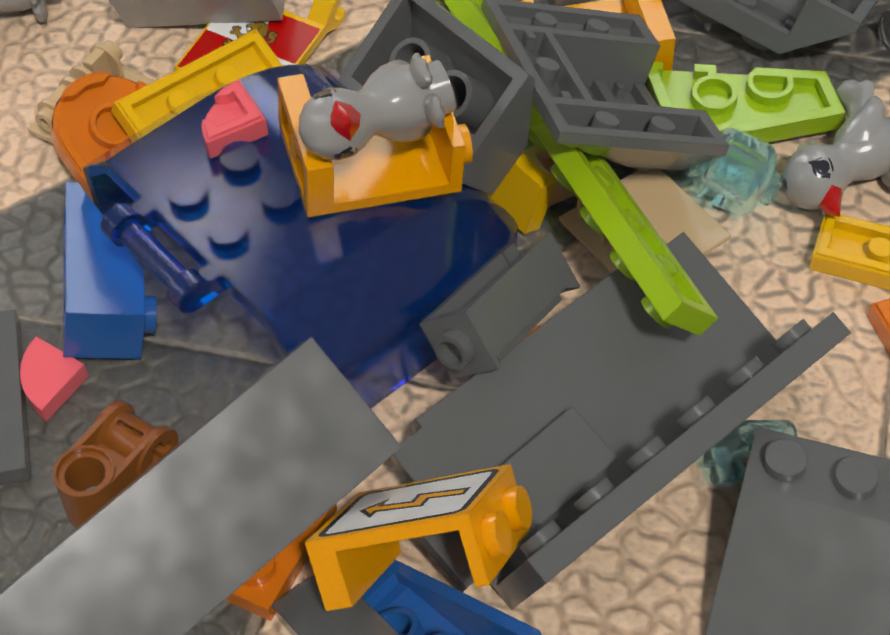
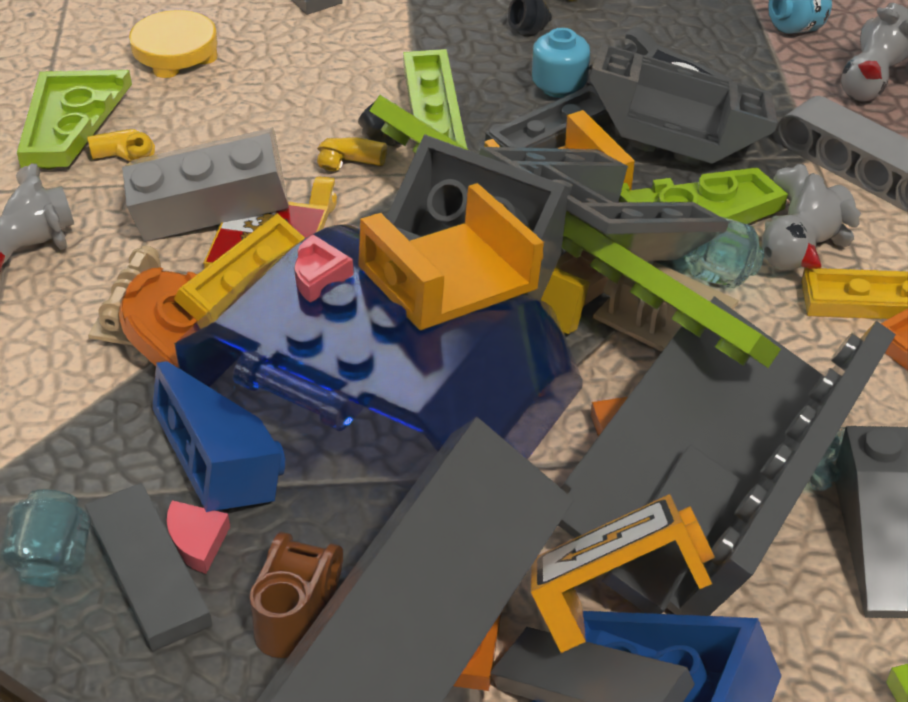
camera: 20 degrees left, 10 degrees down
(395, 103) = (474, 218): light grey animal -> none
(498, 307) = (592, 383): dark grey window -> none

